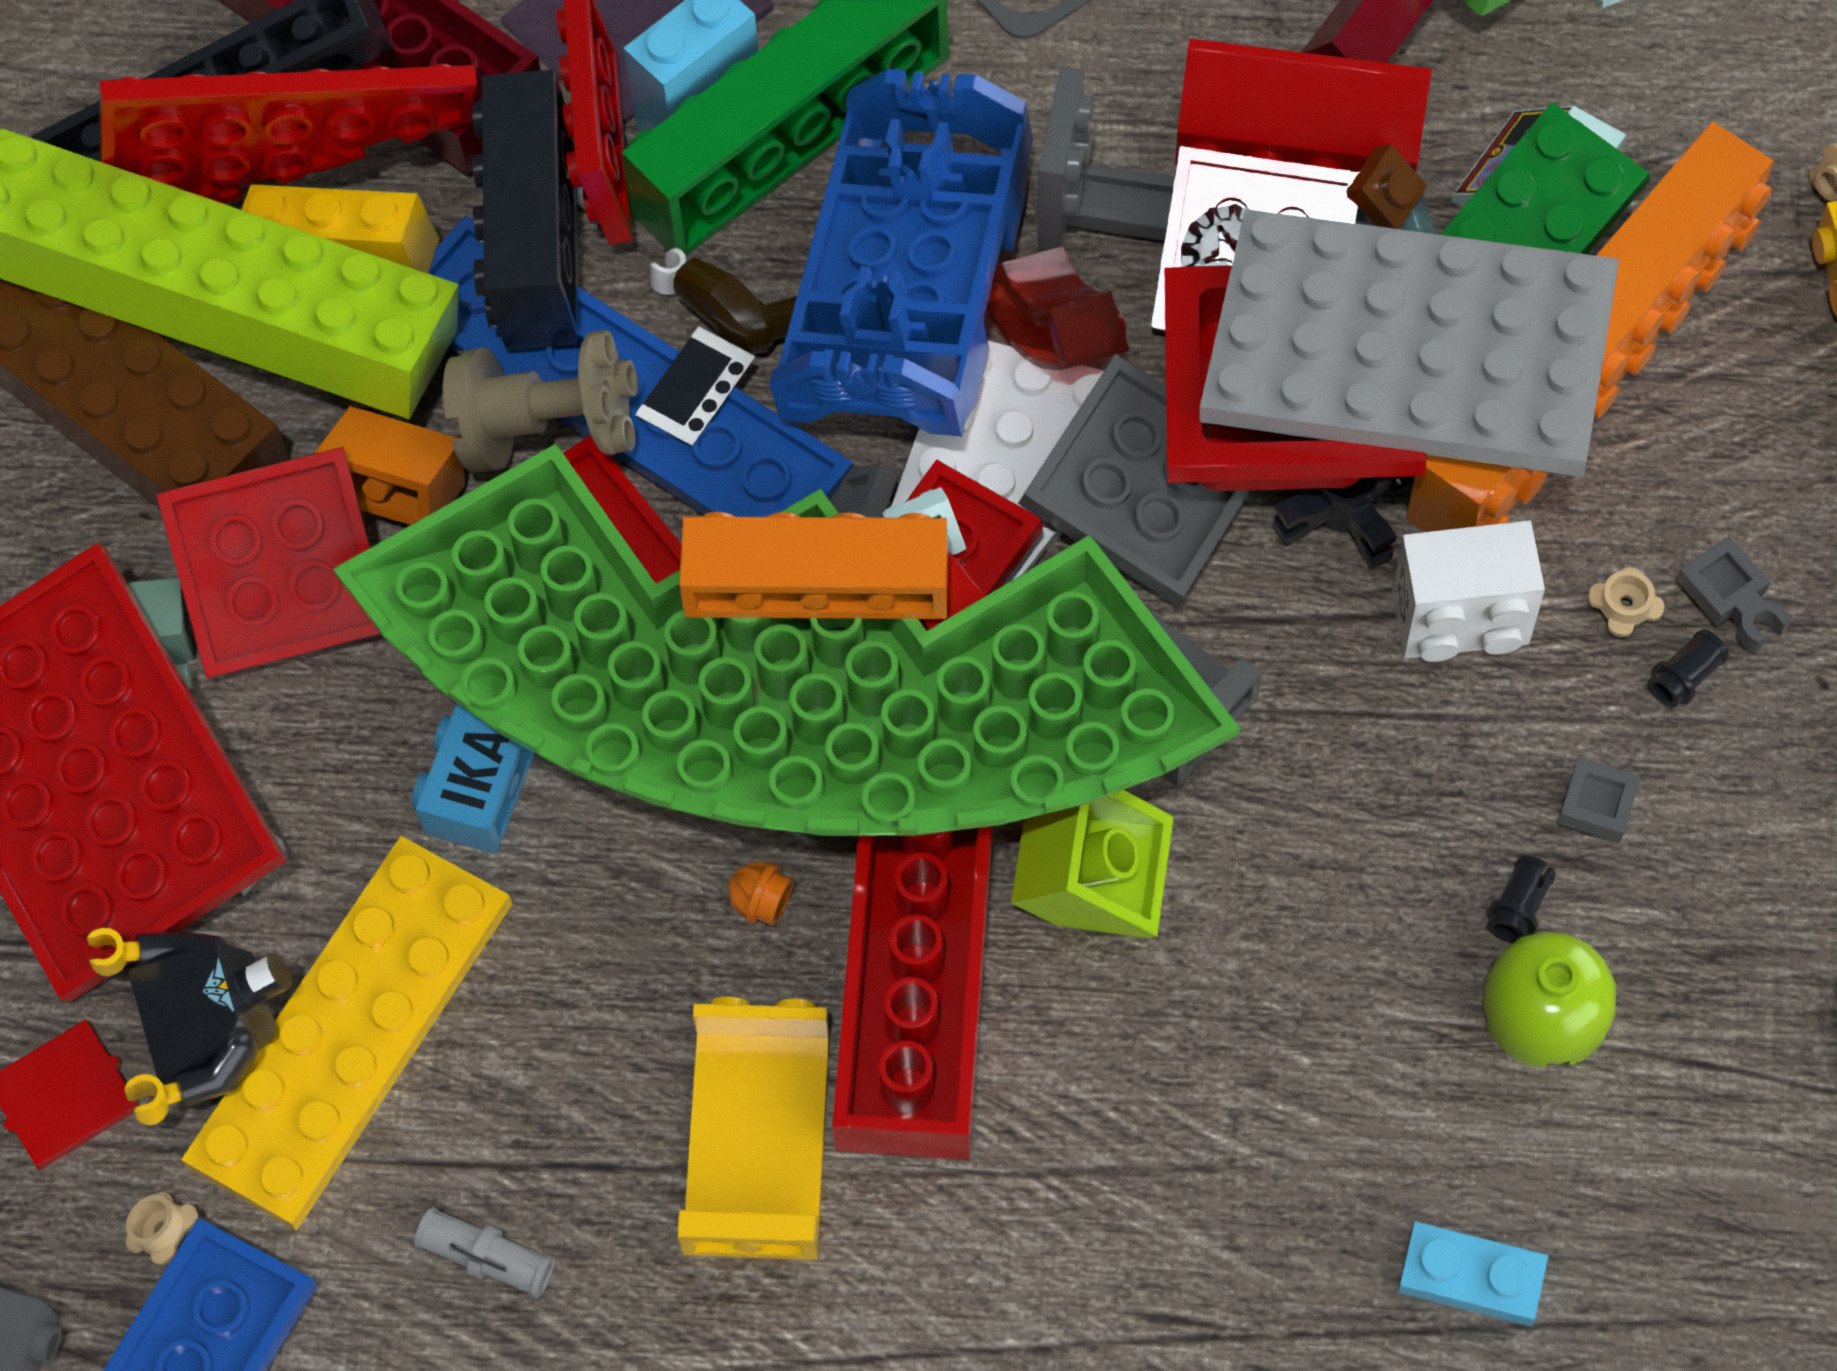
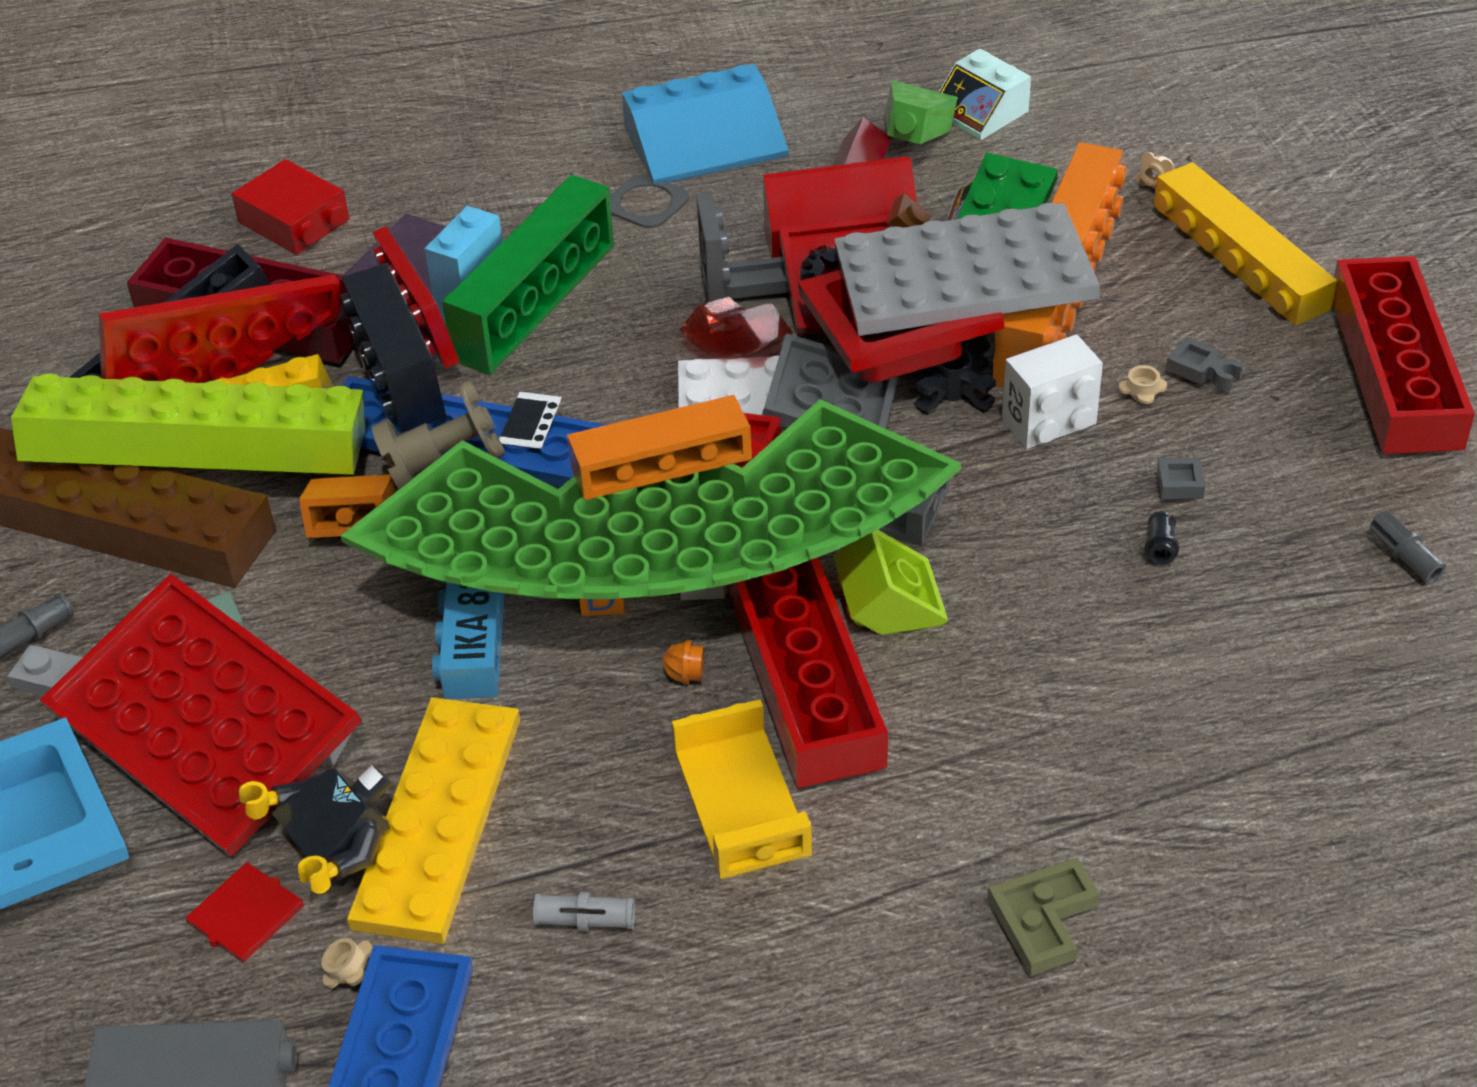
camera: 20 degrees left, 20 degrees down
(262, 558) = (291, 567): red plate -> none
(723, 301) = (534, 376): dark brown arm -> none
(906, 255) = (636, 314): blue piece -> none
(1473, 1274) = (1237, 735): medium azure plate -> none
(1549, 999) = (1206, 580): lime cylinder -> none
(1676, 680) = (1194, 410): black pin -> none

